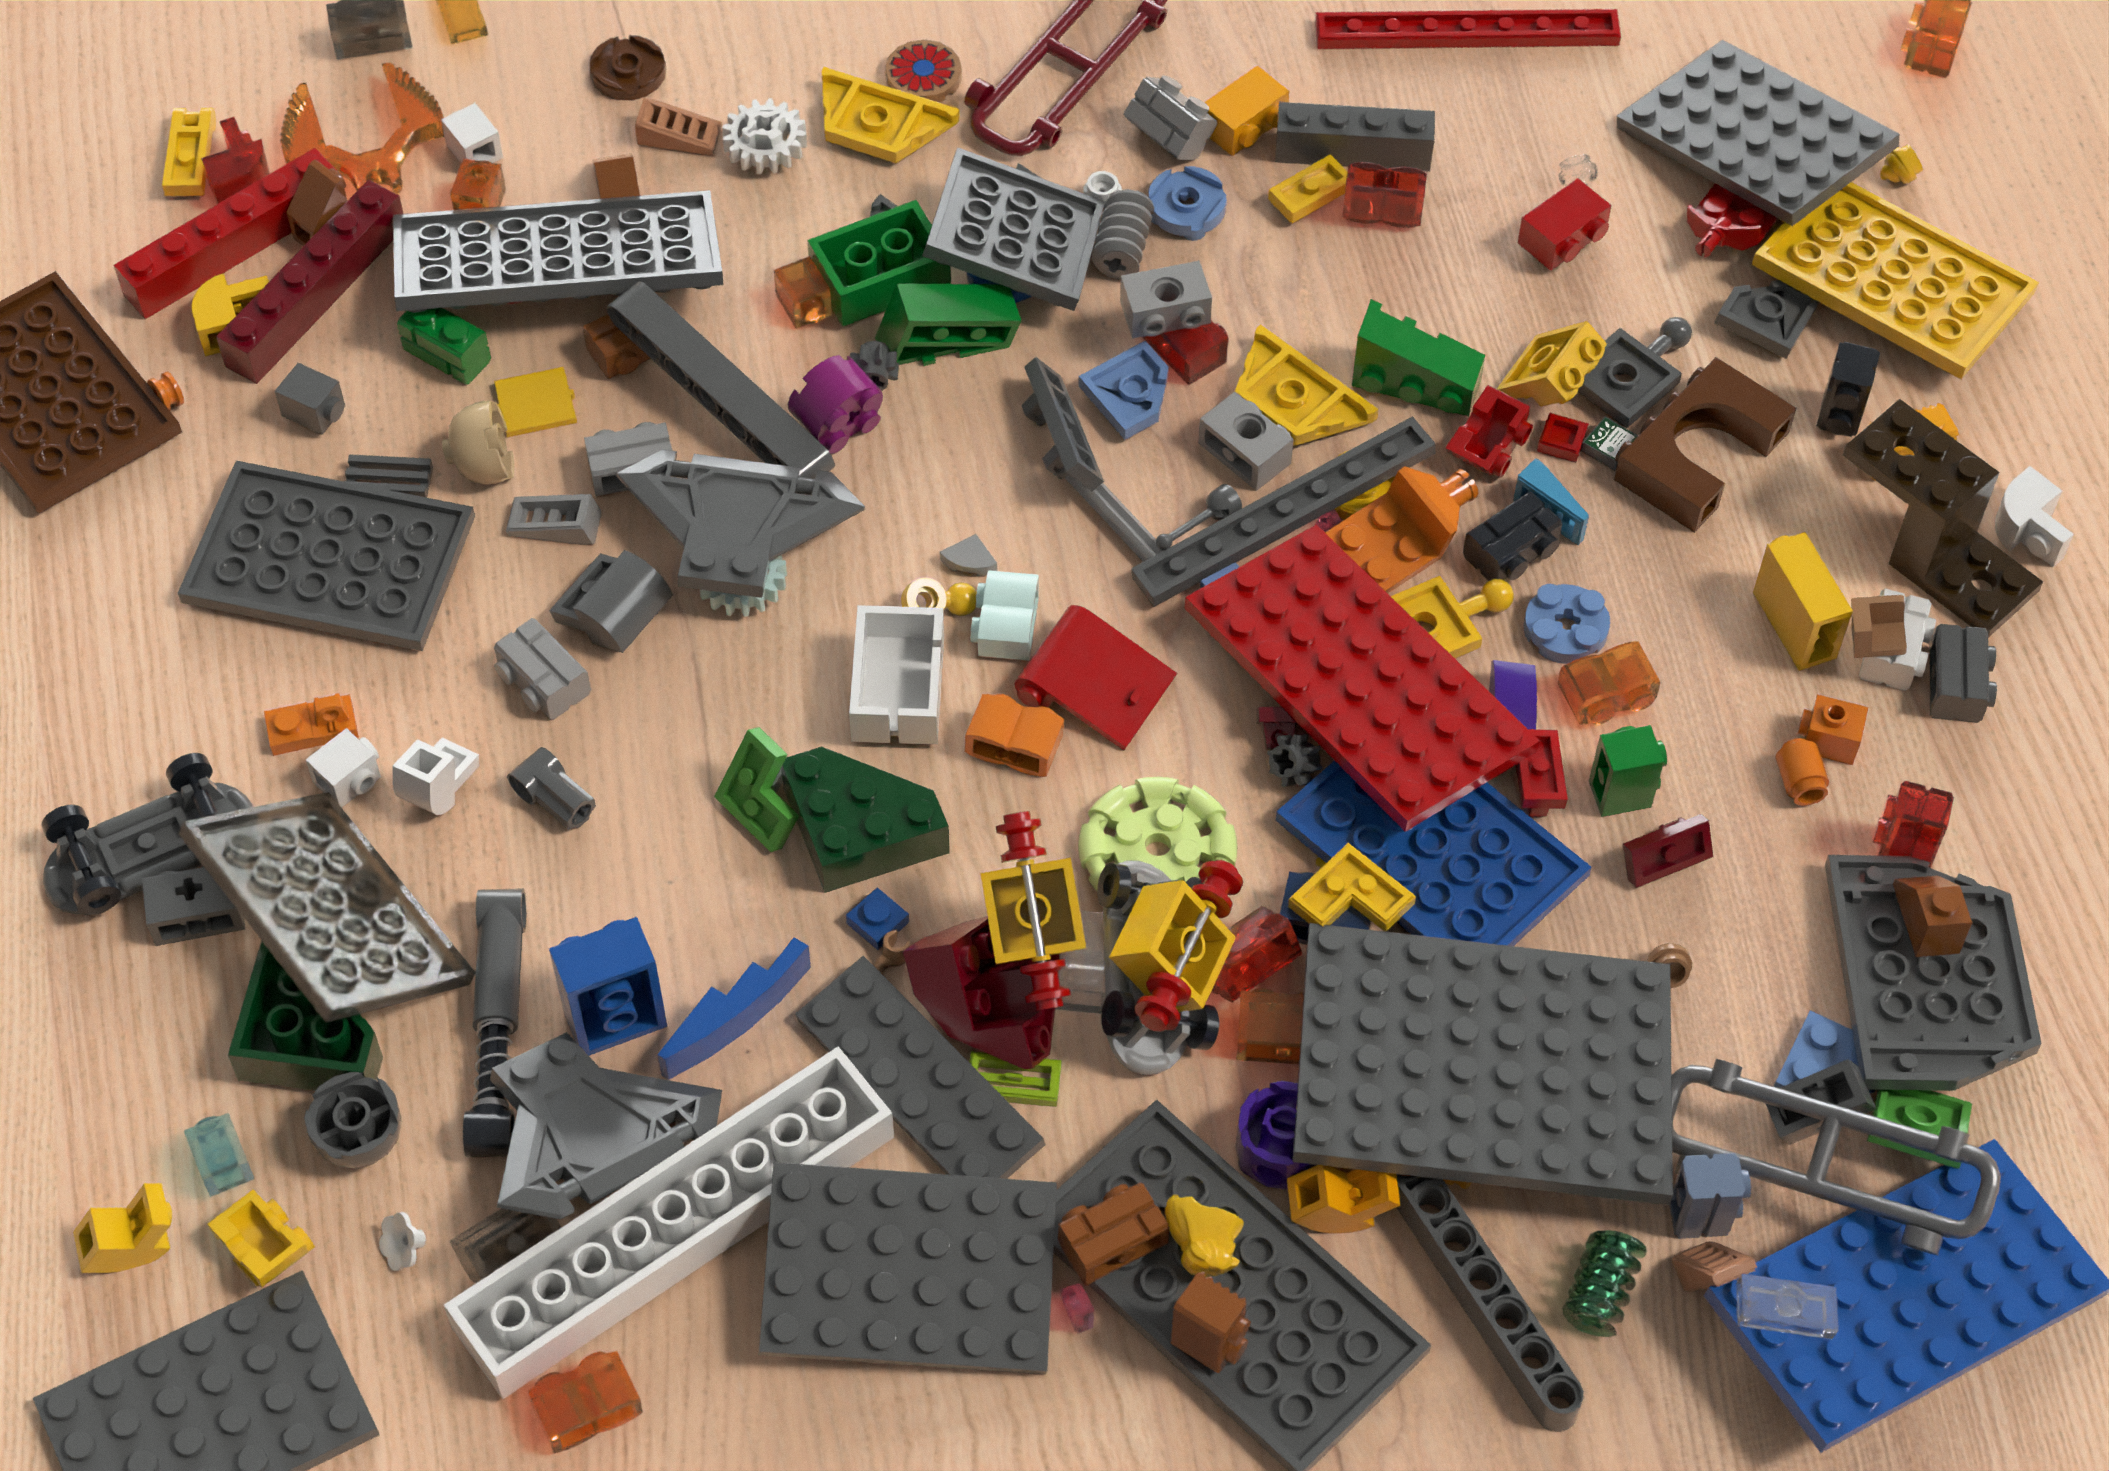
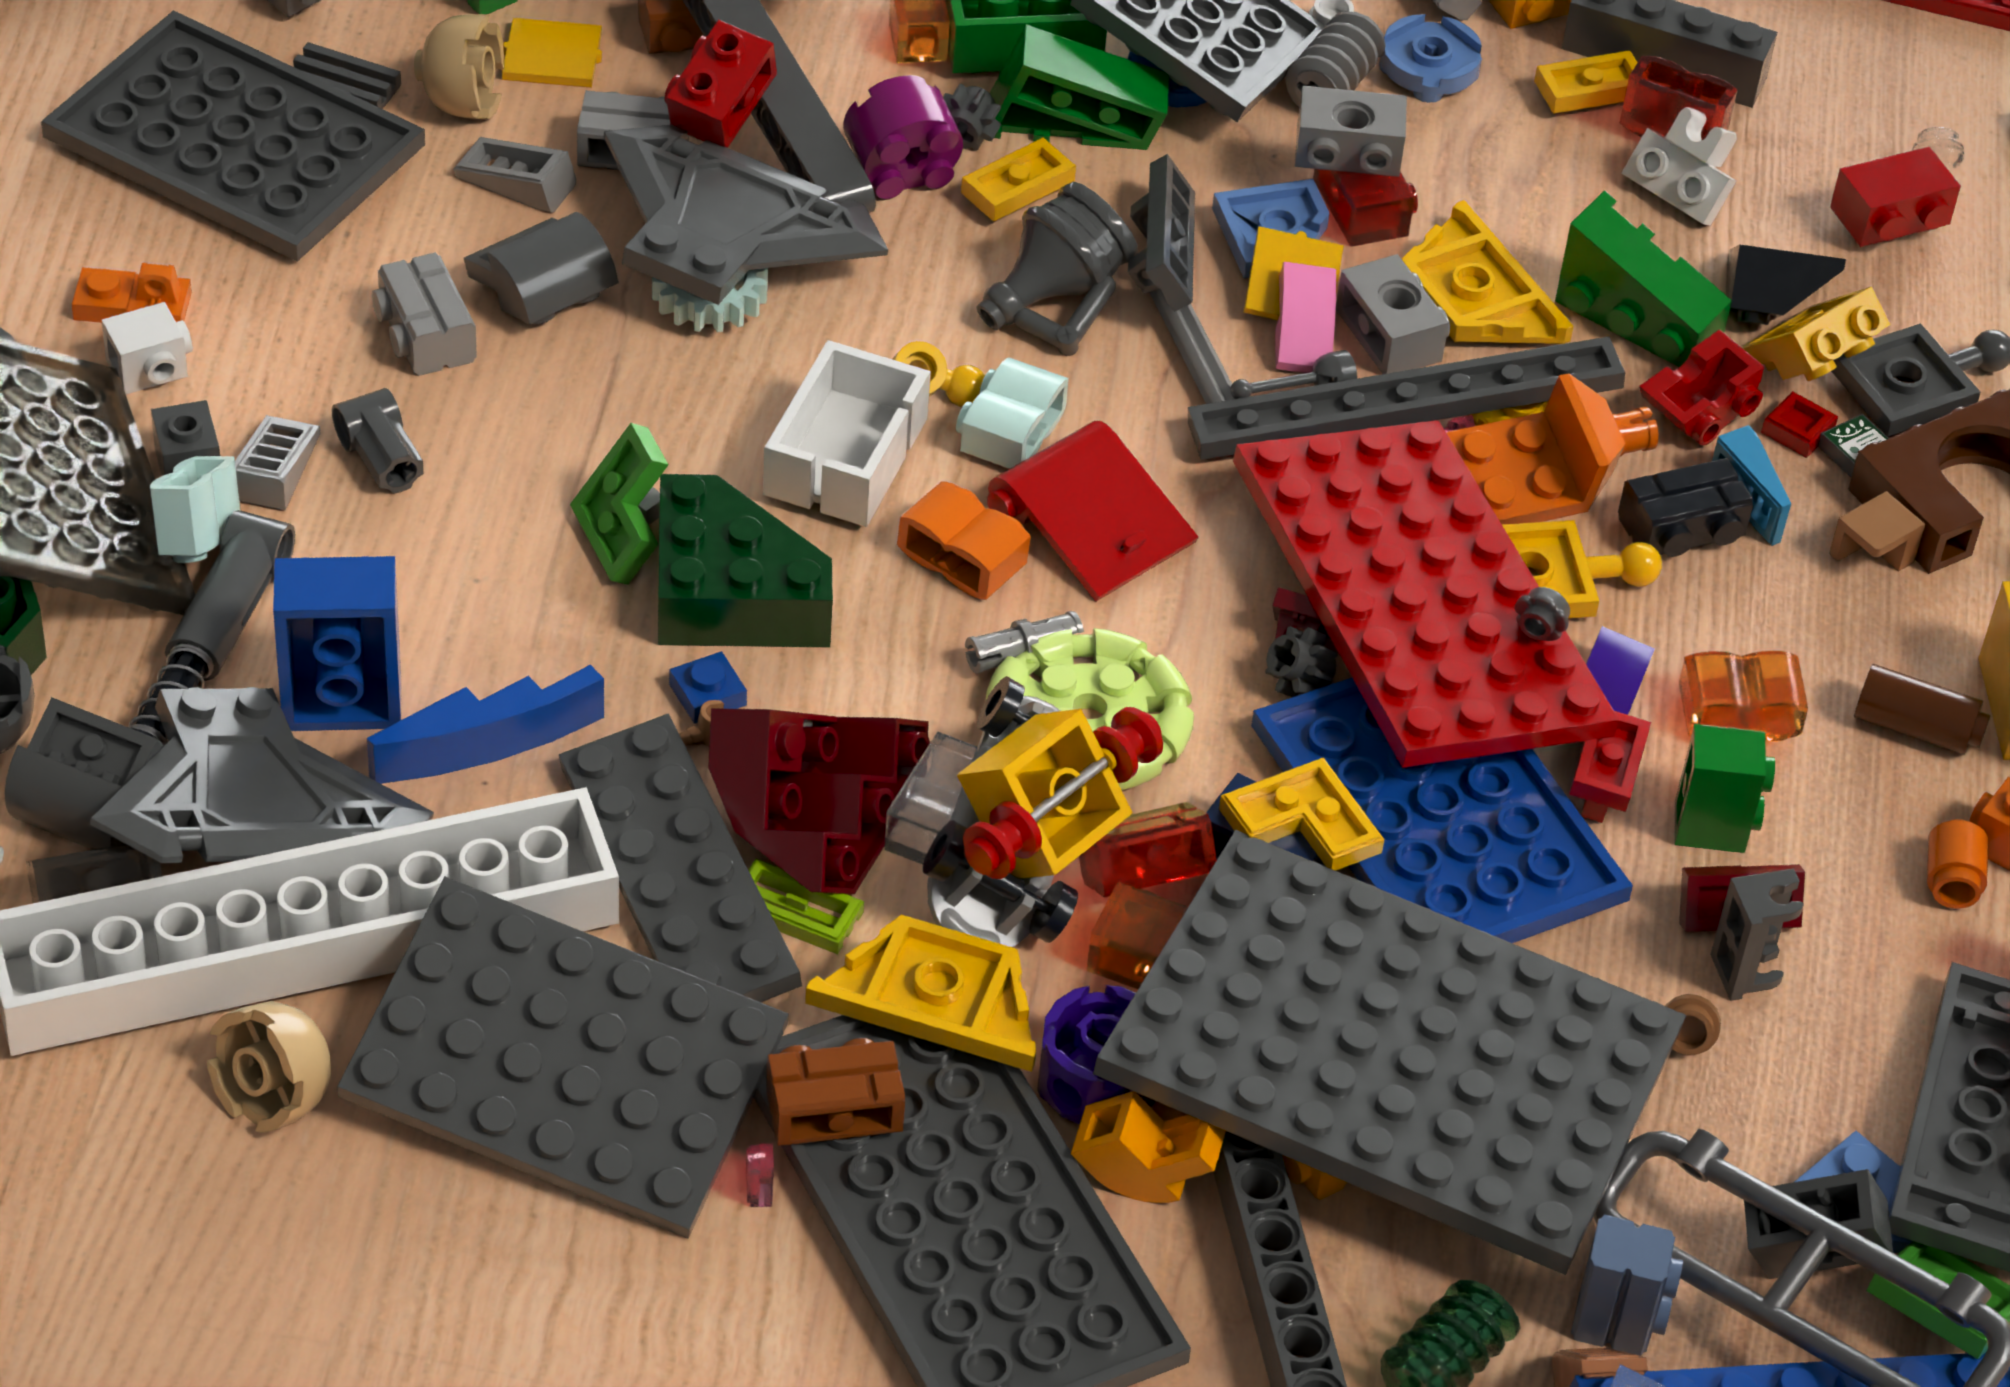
camera: 15 degrees right, 10 degrees down
(412, 845) = (183, 433): none -> dark grey brick
(433, 774) = (242, 378): white brick -> none
(447, 899) = (194, 506): none -> light aqua brick
(460, 1156) = (73, 771): none -> dark grey brick
(486, 857) = (269, 472): none -> light grey slope
(584, 1400) = (105, 1084): clear orange brick -> none
(690, 407) = (721, 83): none -> red brick
(700, 1348) = (269, 1064): none -> tan cylinder
(929, 407) = (1018, 179): none -> yellow plate
(969, 556) = (993, 342): light grey tile -> none
(993, 464) = (1064, 250): none -> dark grey piece
(1033, 910) = (886, 700): yellow brick -> none
(1085, 806) = (996, 646): none -> light grey pin
(1149, 1123) = (935, 989): none -> yellow wing
(1163, 431) = (1270, 252): none -> yellow piece
(1186, 462) = (1305, 316): none -> bright pink slope
(1204, 1235) = (947, 1126): yellow hair -> none
(1210, 1323) = (906, 1217): dark orange brick -> none
(1407, 246) = (1684, 166): none -> white plate
(1460, 676) = (1542, 614): none -> flat silver plate
(1506, 323) = (1774, 281): none -> black slope
(1569, 602) = (1715, 595): medium blue plate -> none
(1656, 514) = (1880, 528): none -> medium nougat panel
(1688, 879) = (1751, 930): none -> dark grey hinge
(1734, 653) = (1921, 710): none -> reddish brown brick

